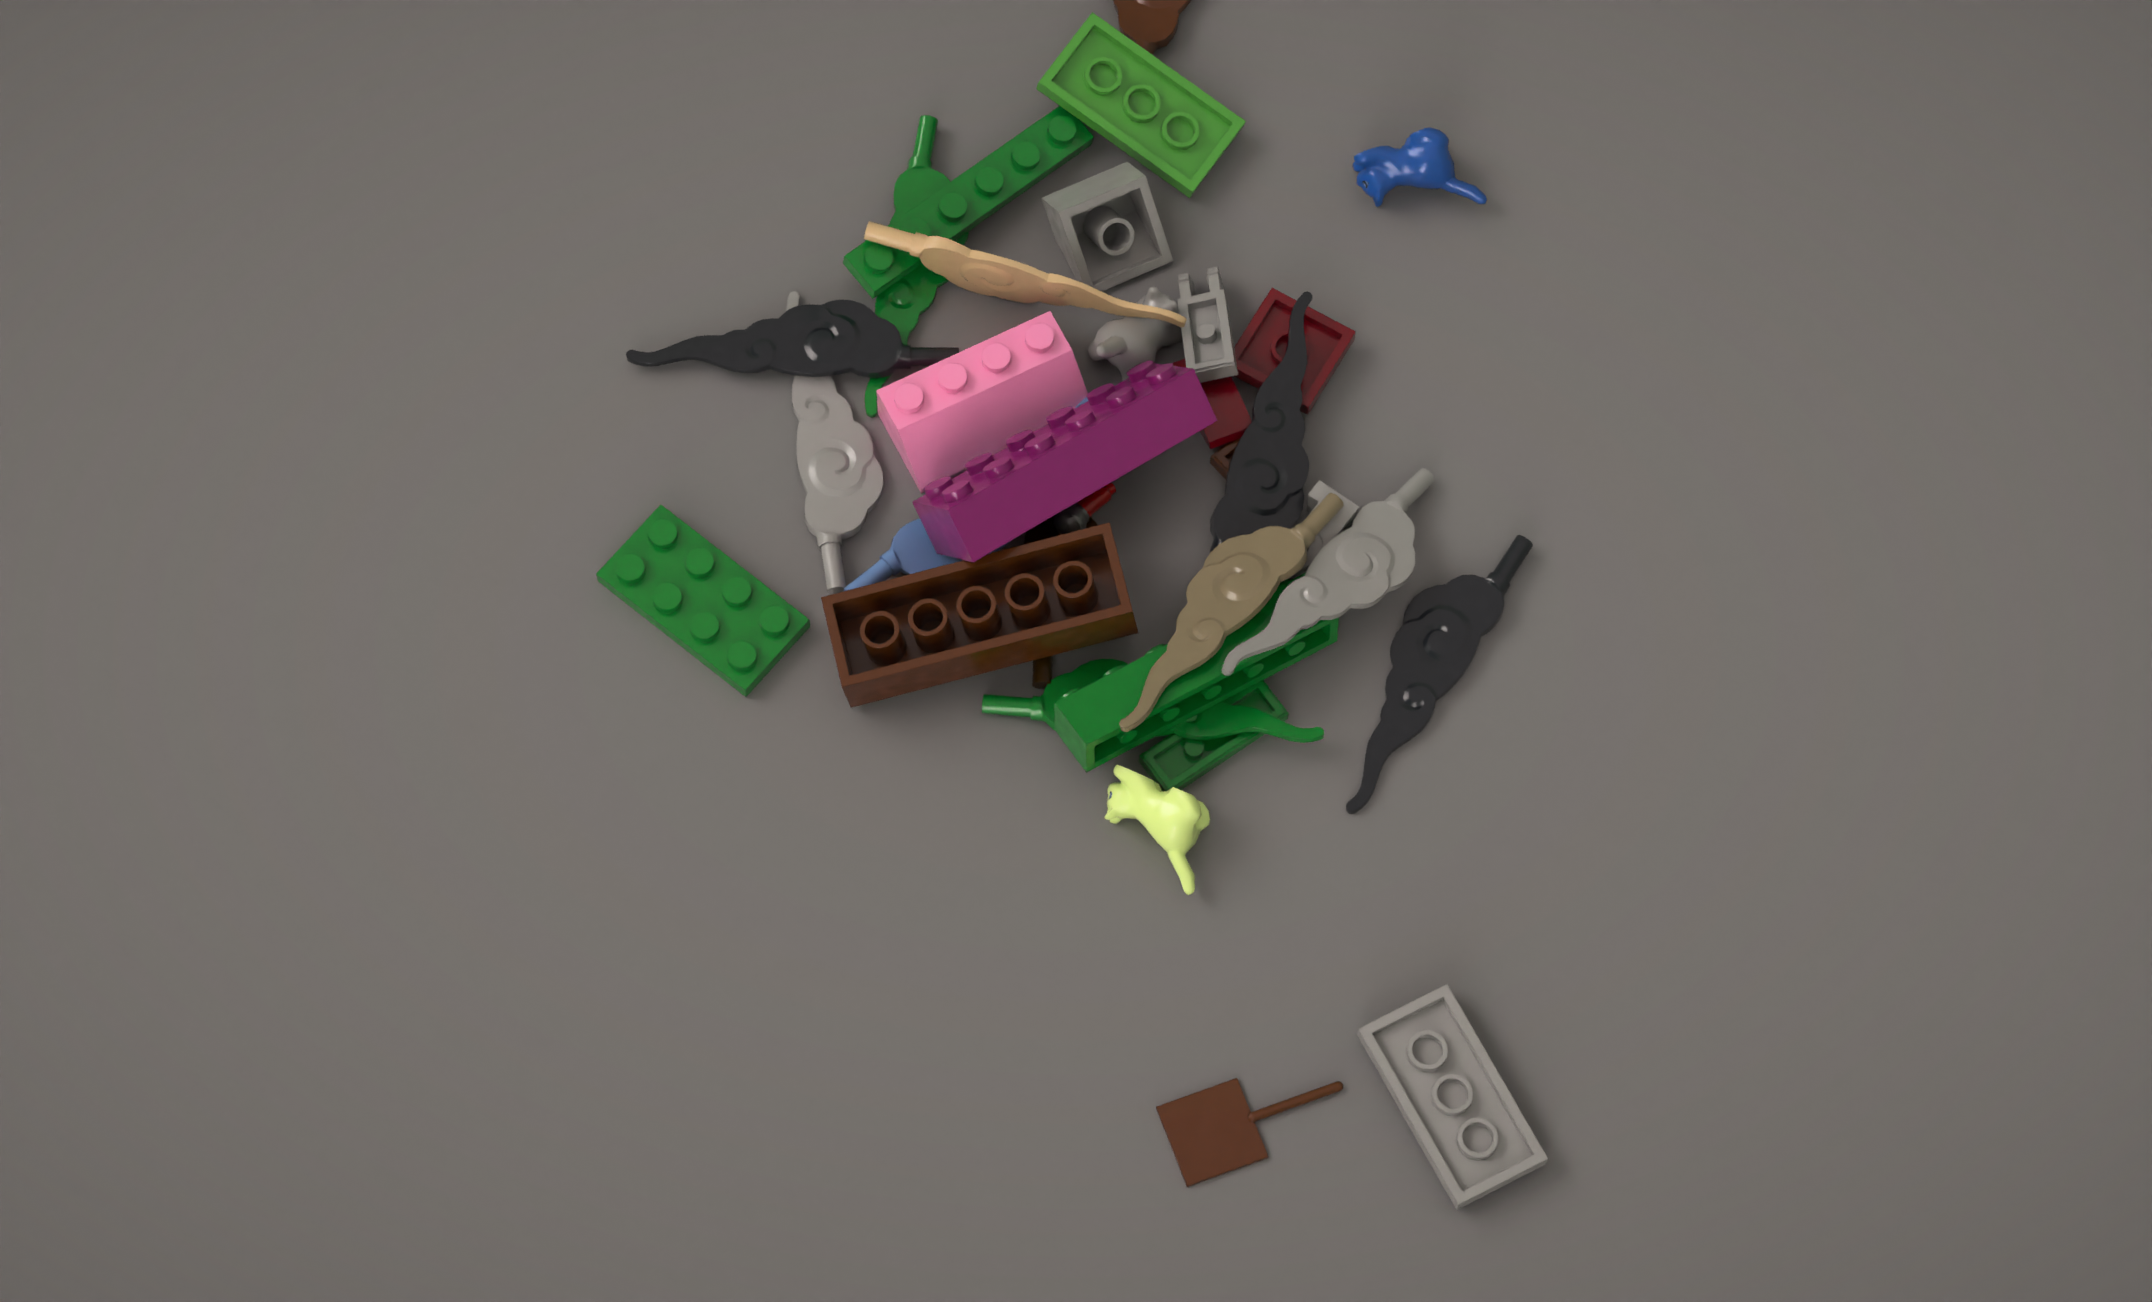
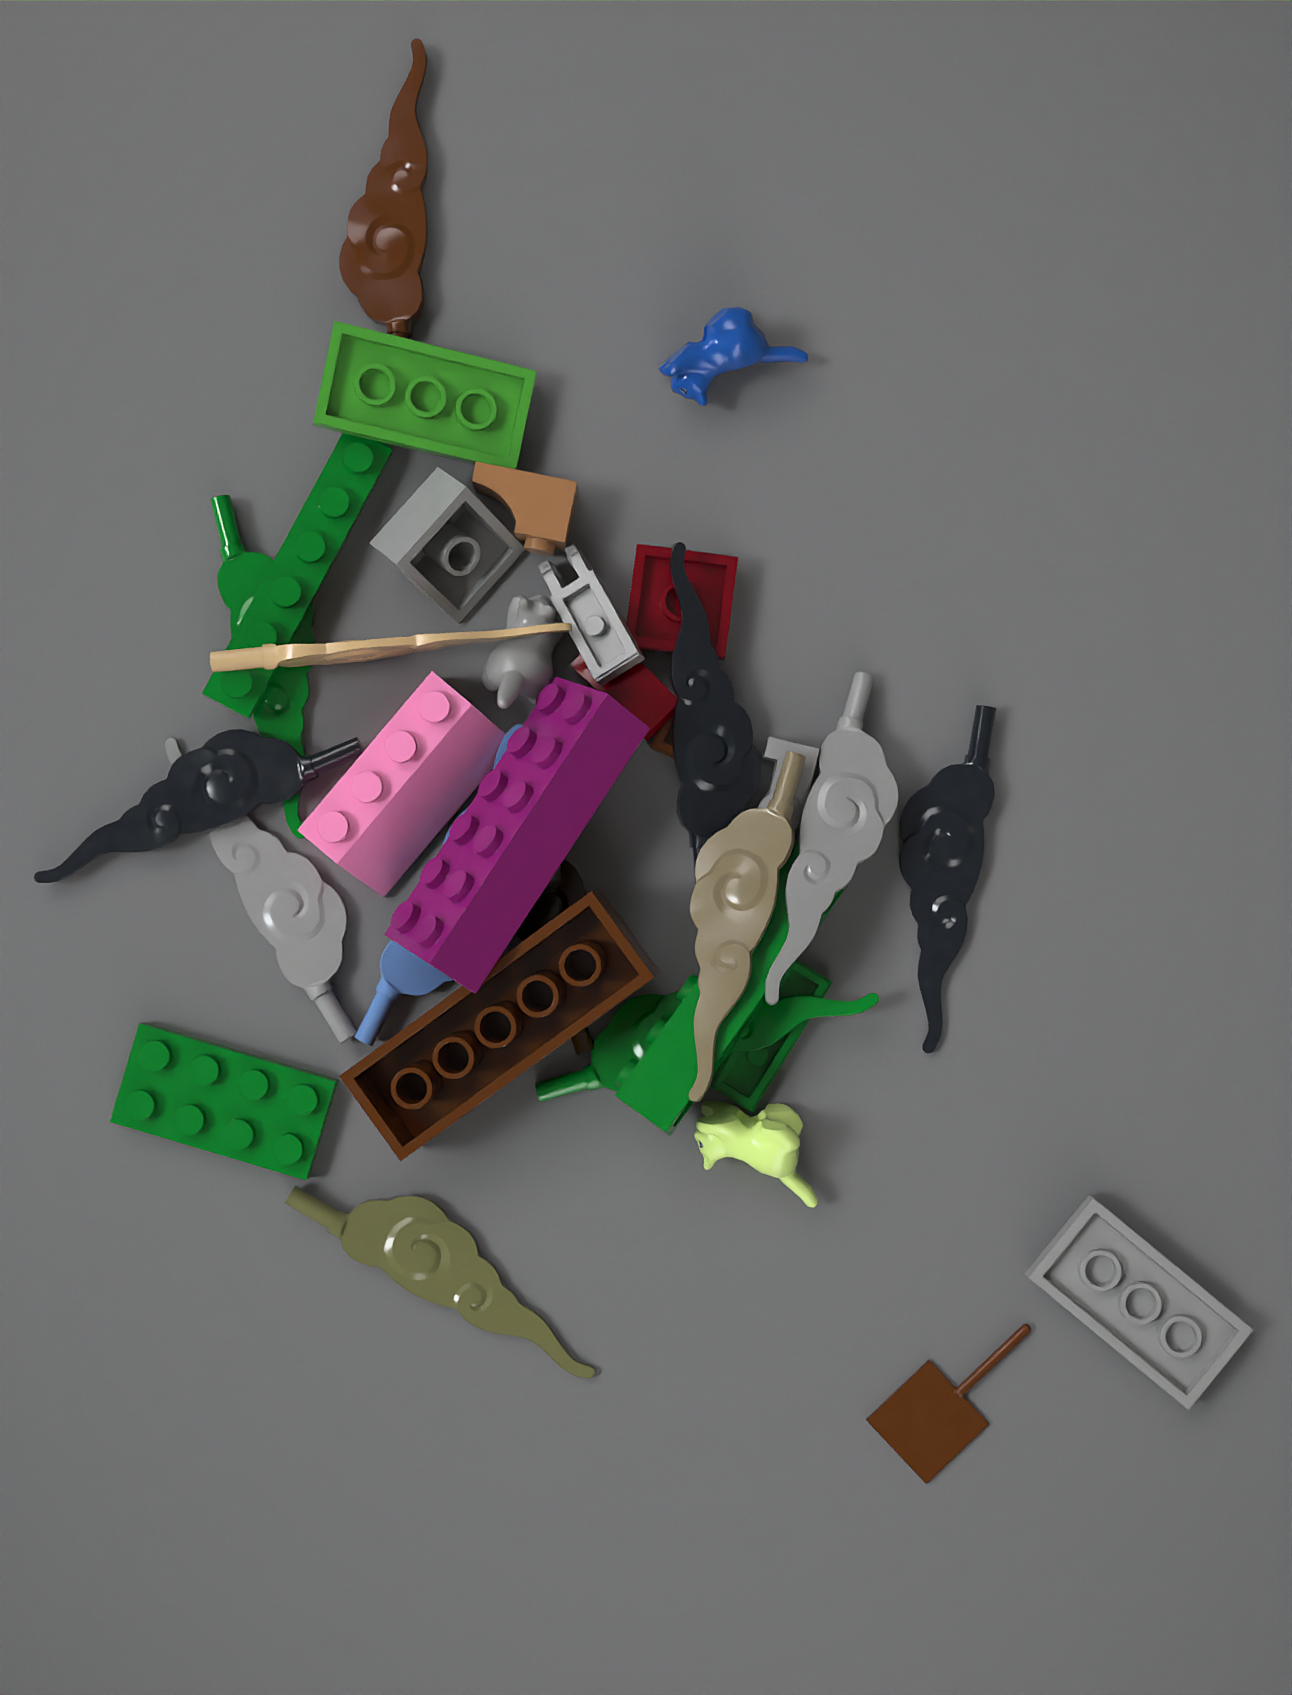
camera: 25 degrees left, 20 degrees up
(827, 811) = (435, 1262): none -> olive piece
(1200, 223) = (537, 502): none -> medium nougat arch

